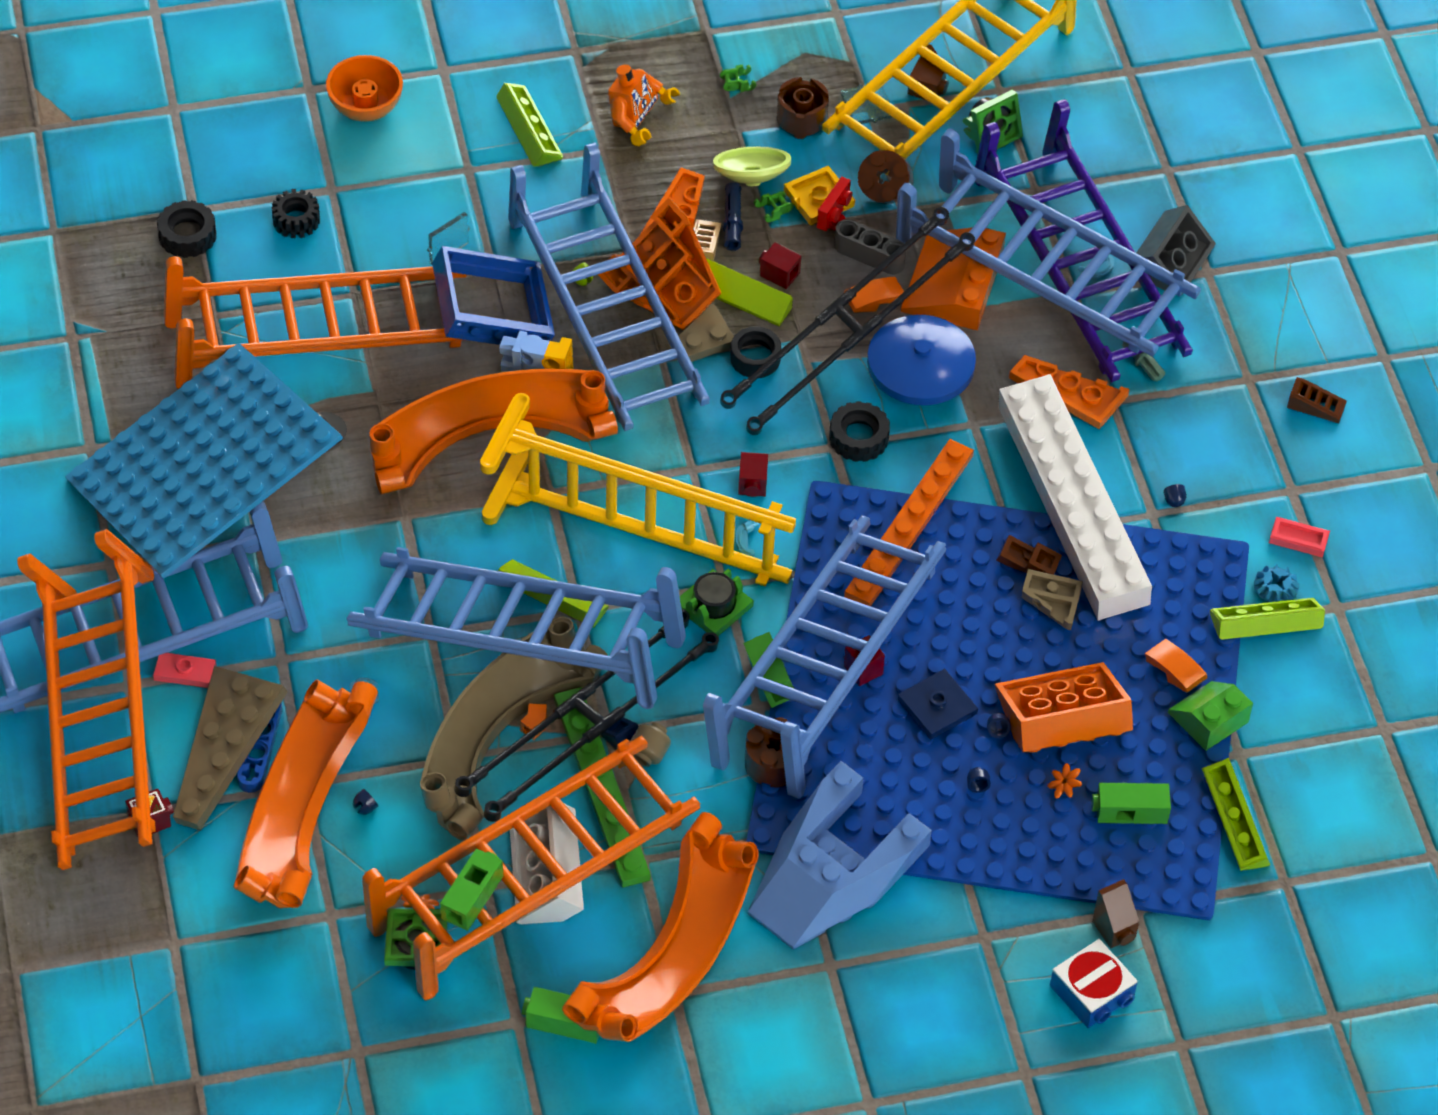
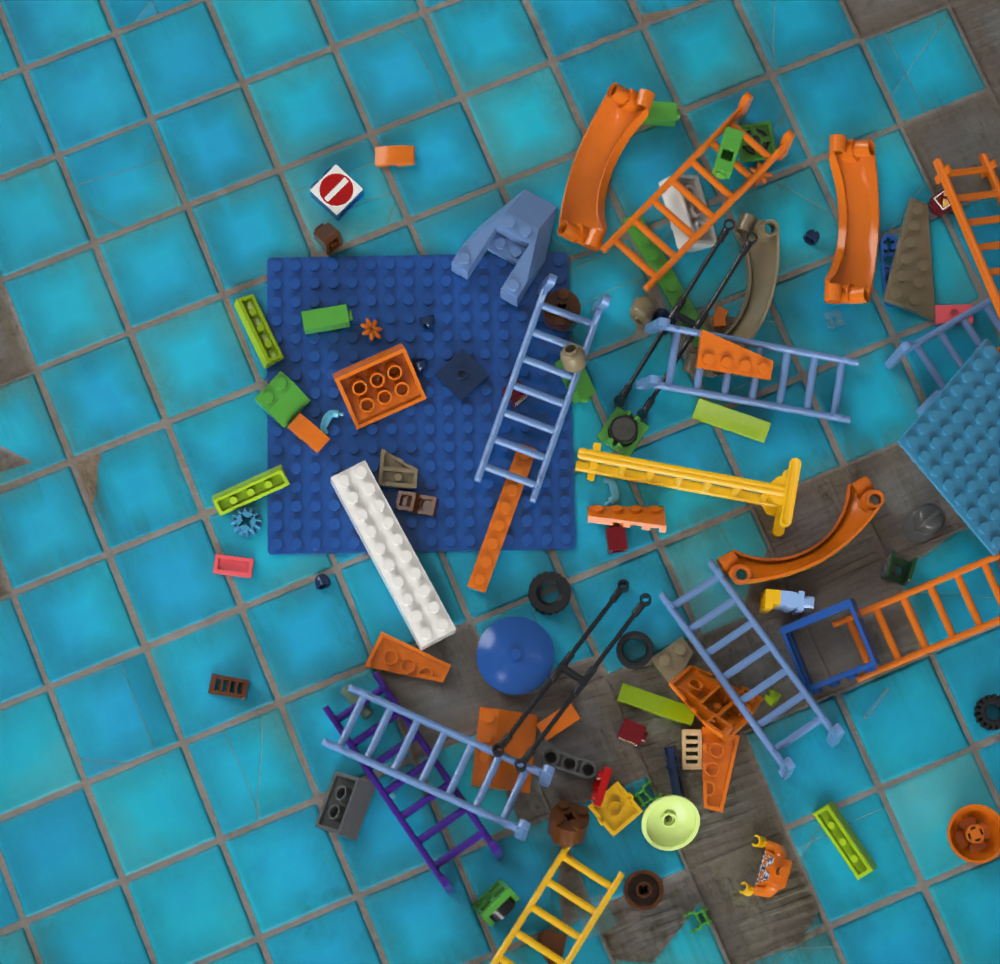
camera: 170 degrees right, 25 degrees up
(359, 374) = (906, 566): none -> dark green piece
(550, 620) = (726, 357): none -> orange wing
(731, 484) = (627, 516): none -> orange wing
(783, 657) = (573, 358): none -> dark tan head
(991, 1023) = (395, 155): none -> orange slope
(1144, 684) = (327, 418): none -> medium azure piece

